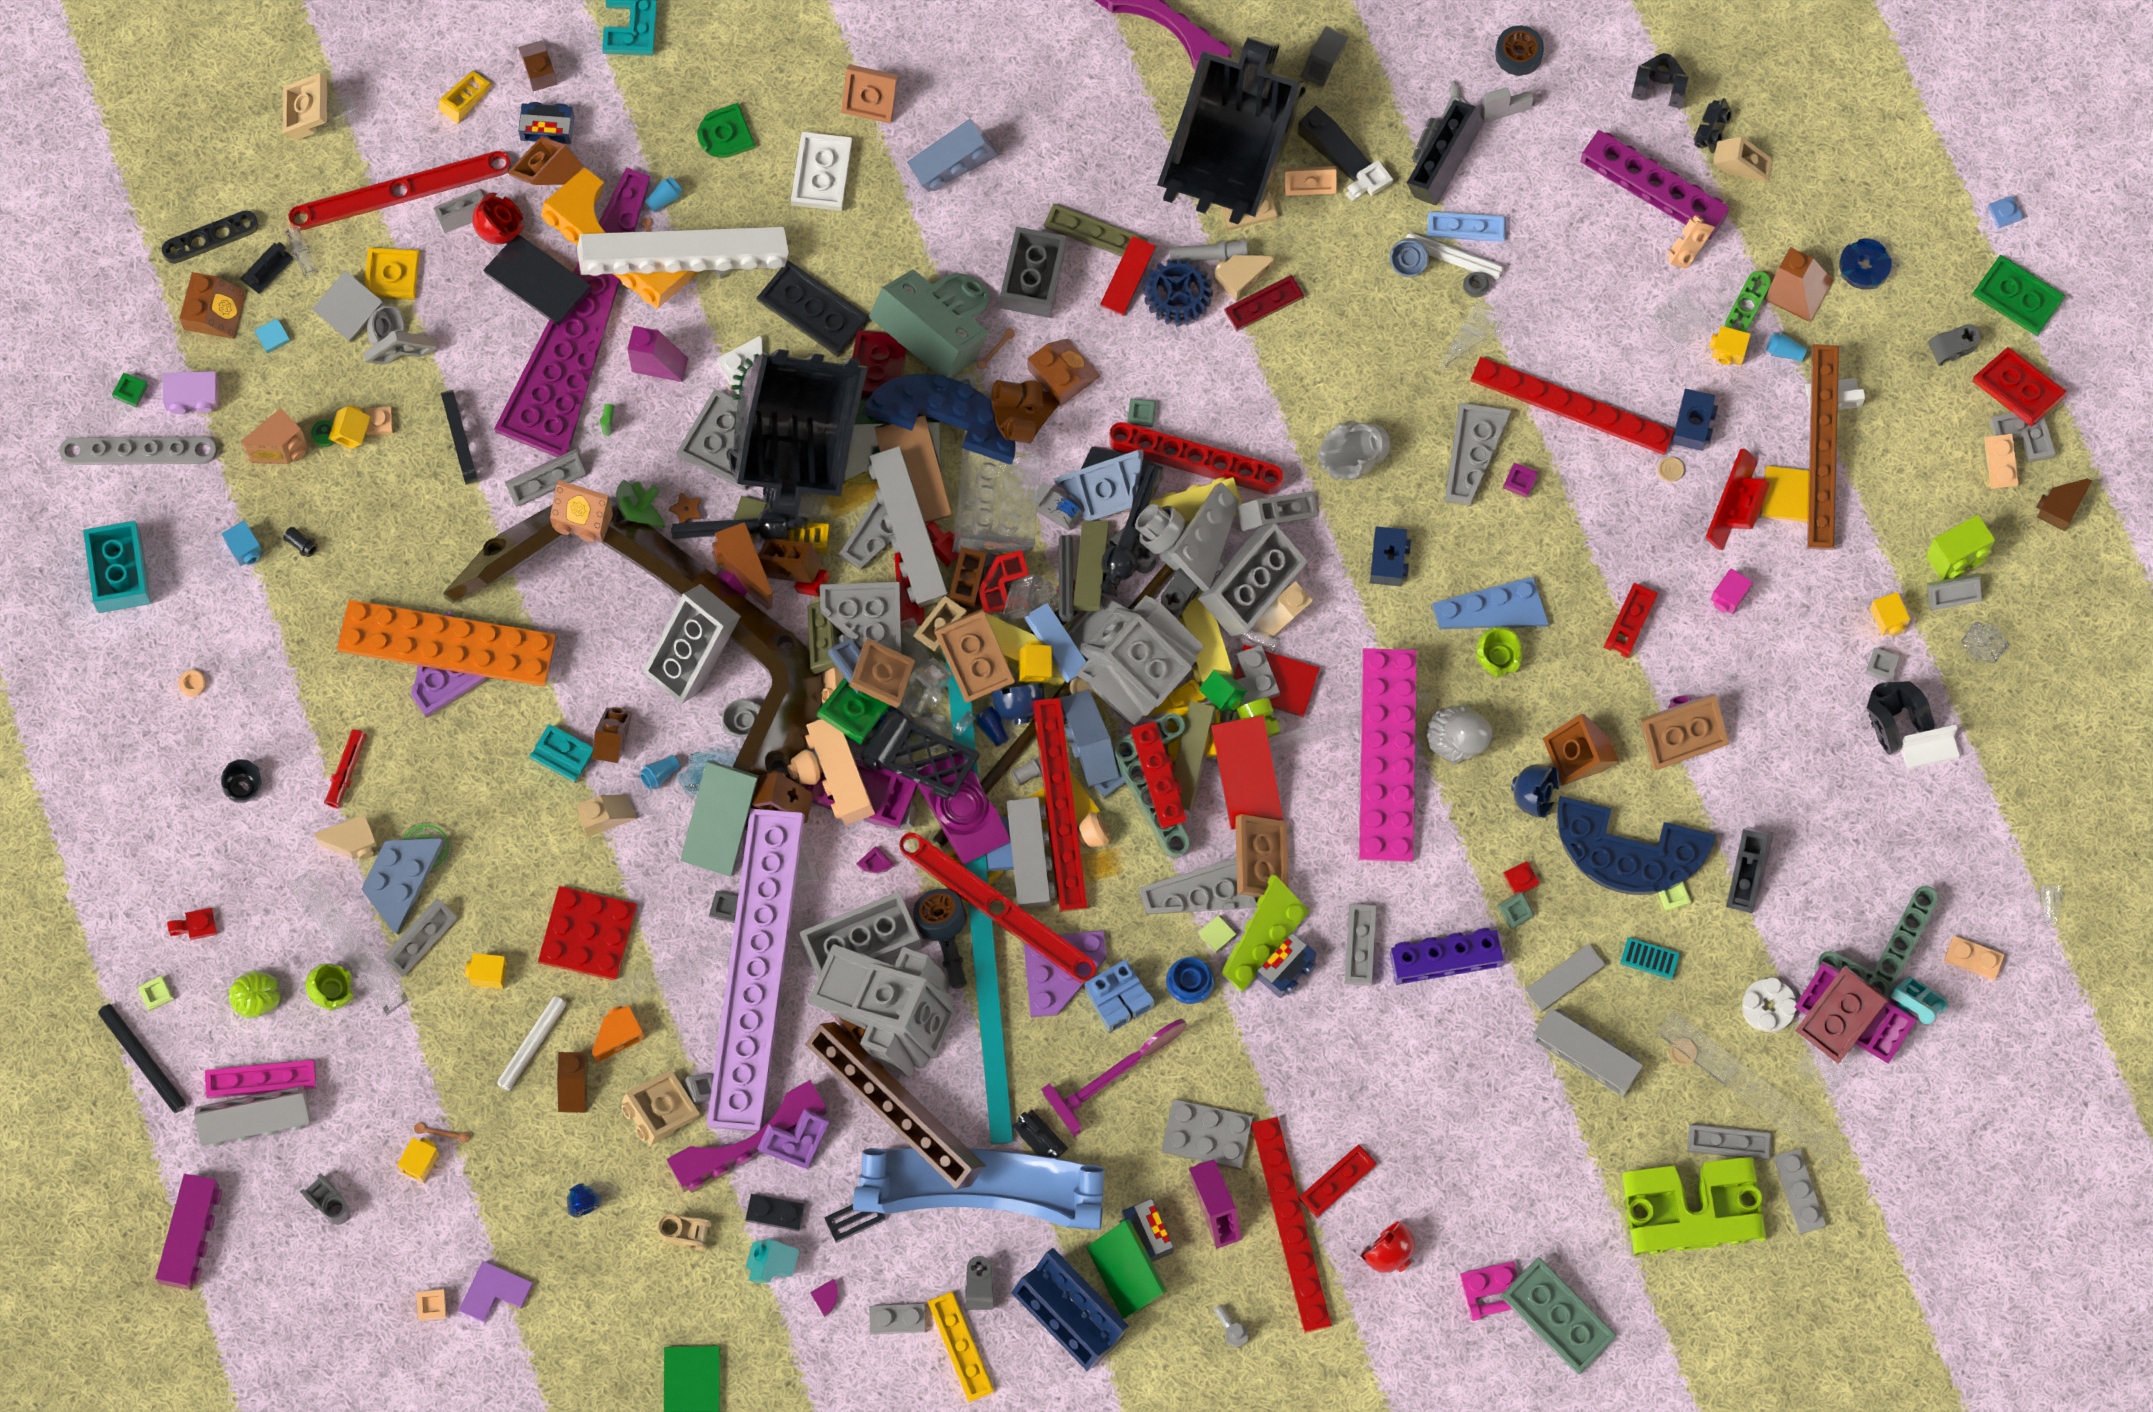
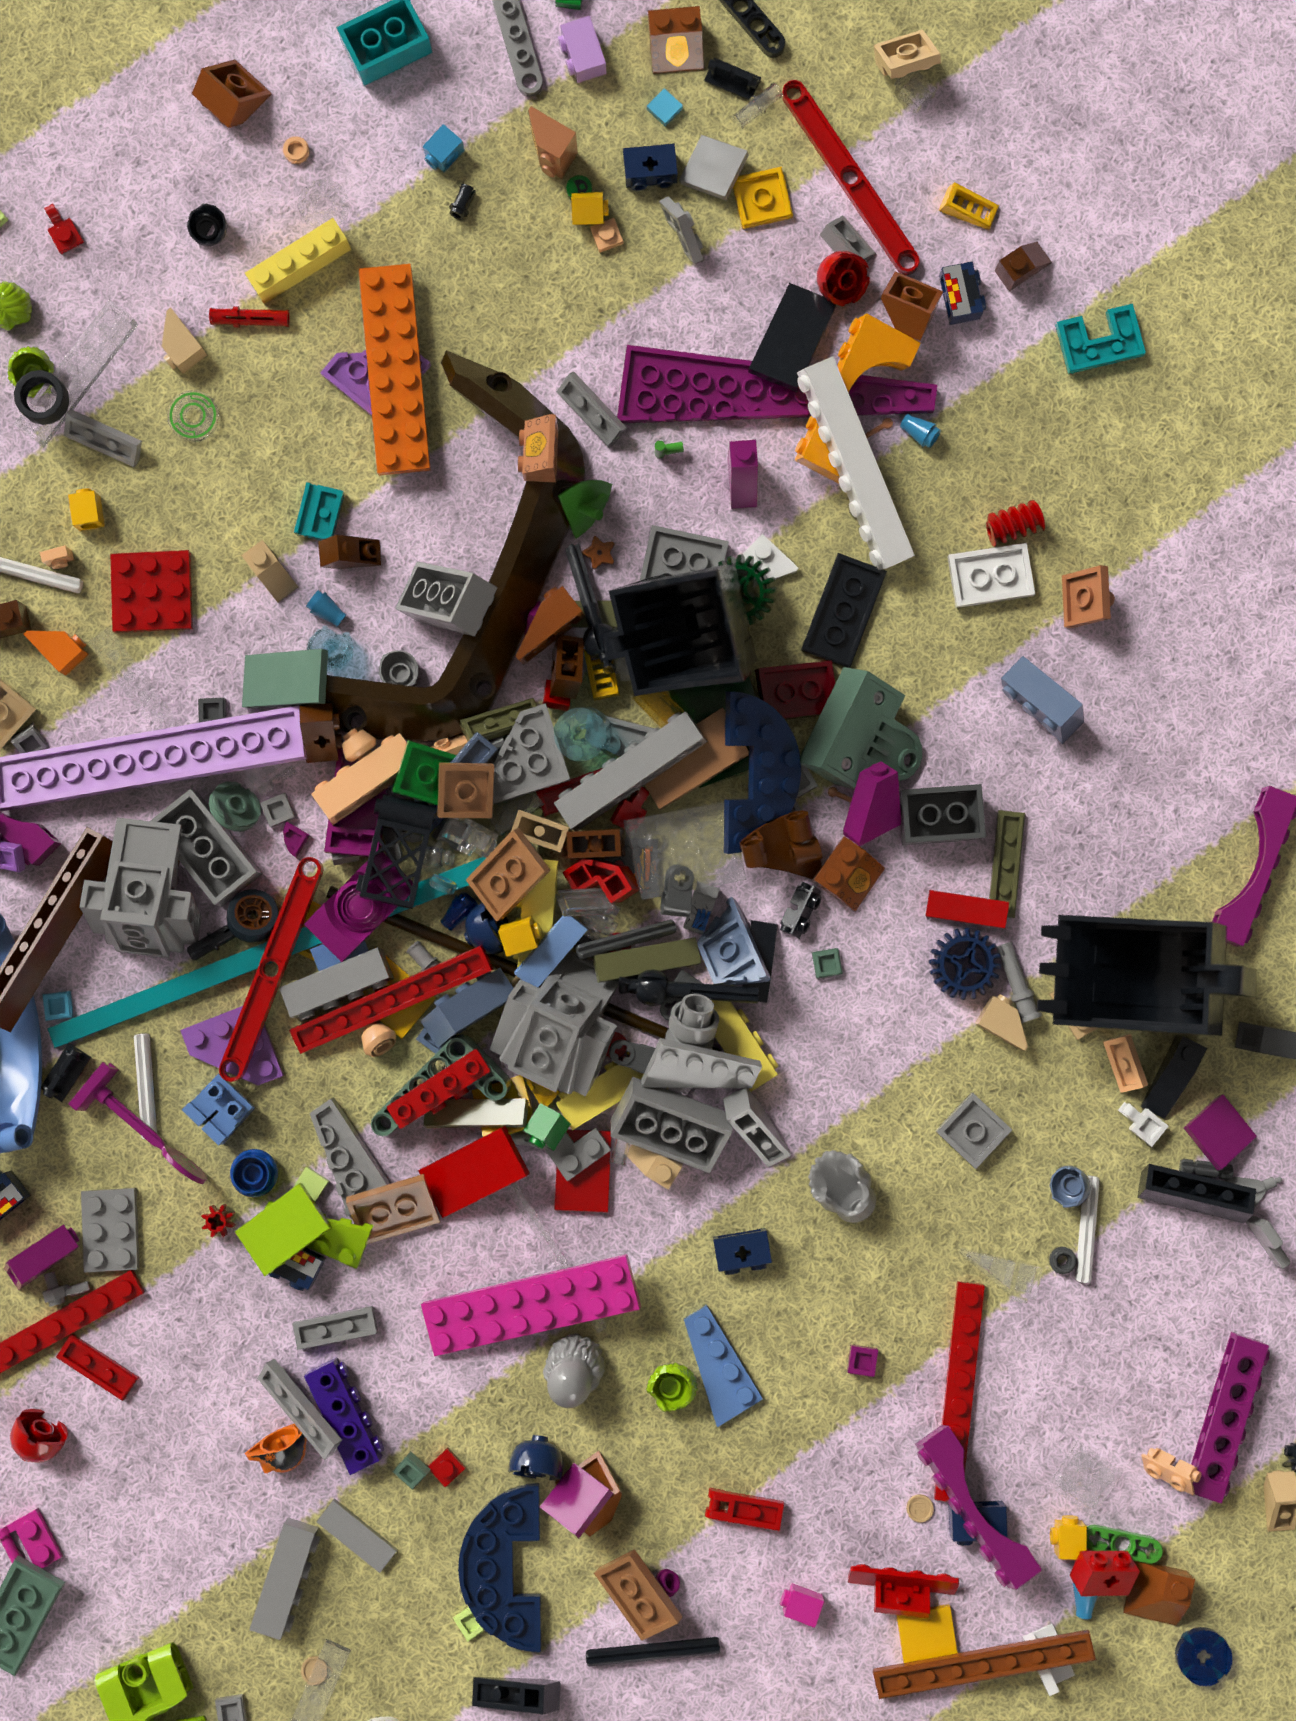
camera: 80 degrees right, 15 degrees up
(115, 727) = (230, 92): none -> dark orange slope
(307, 705) = (298, 260): none -> light yellow brick
(327, 347) = (662, 160): none -> dark blue brick
(361, 949) = (25, 385): none -> black tyre
(383, 322) = (703, 207): light grey hat -> none
(399, 877) = (154, 401): sand blue wing -> none
(459, 437) = (609, 314): black beam -> none
(525, 1011) = (57, 557): none -> light nougat plate
(725, 132) = (1005, 469): green tile -> none
(778, 136) = (1014, 521): none -> red piece
(828, 902) = (234, 806): none -> sand green tile
(842, 869) = (277, 810): none -> light grey tile
(867, 549) = (568, 730): none -> clear light blue brick
(972, 1128) = (58, 1005): none -> medium azure tile
(1006, 323) = (874, 804): none -> magenta slope
(1036, 511) = (677, 895): none -> dark grey piece
(1068, 1063) = (145, 1080): none -> white axle
(1077, 414) = (797, 921): none -> black hinge
(1099, 865) = (348, 1053): clear yellow tile -> none
(1187, 449) = (797, 1043): red beam -> none
(1229, 1032) = (224, 1217): none -> red gear
(1252, 957) = (283, 1229): none -> lime tile
(1255, 1199) = (56, 1294): none -> light grey piece
(1260, 707) = (540, 1168): lime wheel -> none
(1264, 303) = (980, 1052): dark red tile -> none
(1334, 327) = (973, 1130): none -> light grey plate
(1396, 119) = (1220, 1132): none -> magenta tile
(1427, 991) = (299, 1409): none -> light grey plate
(1465, 1018) = (279, 1450): none -> orange hat
(1466, 226) = (1123, 1233): light blue tile -> none
(1473, 445) = (888, 1303): light grey wing -> none
(1580, 758) = (576, 1500): none -> tile
(1628, 426) = (945, 1457): none -> magenta arch
(1649, 958) = (399, 1614): teal tile -> none
(1742, 738) = (652, 1651): none -> black axle
(1765, 320) = (1104, 1573): none -> red brick

